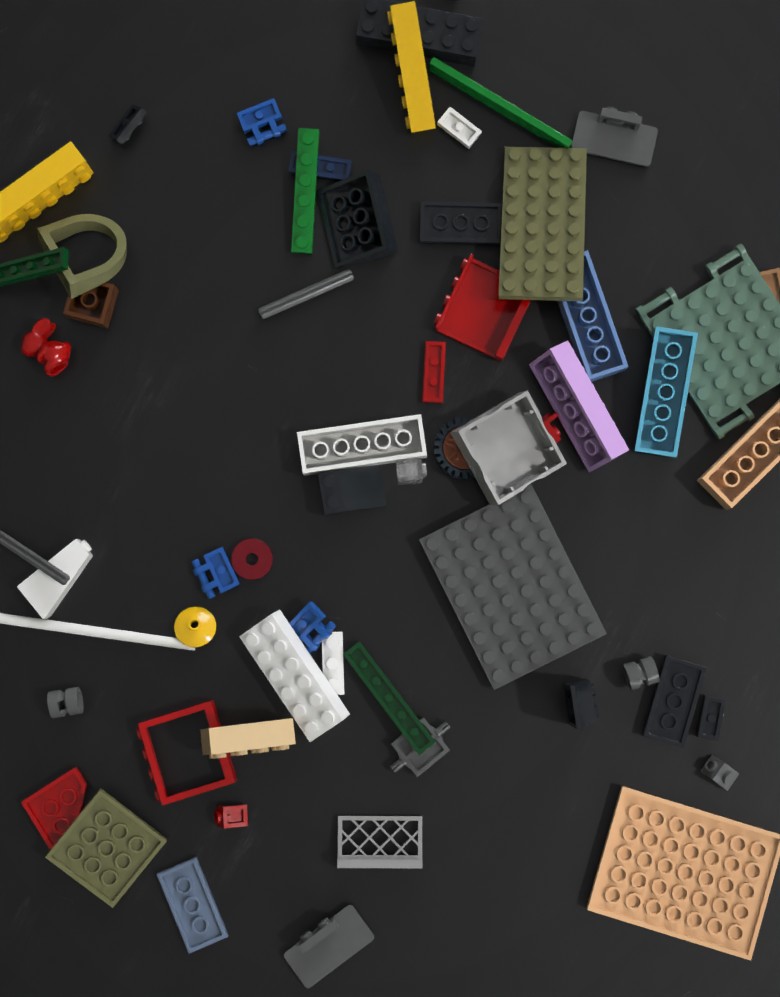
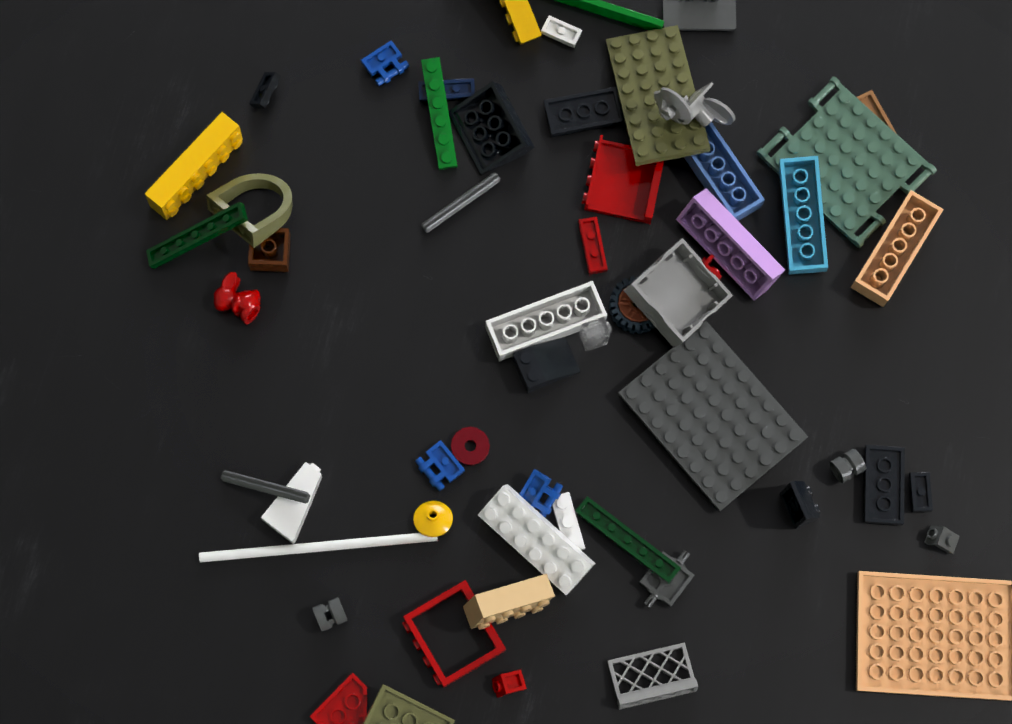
camera: 20 degrees left, 10 degrees down
(578, 249) = (683, 110): none -> light grey piece

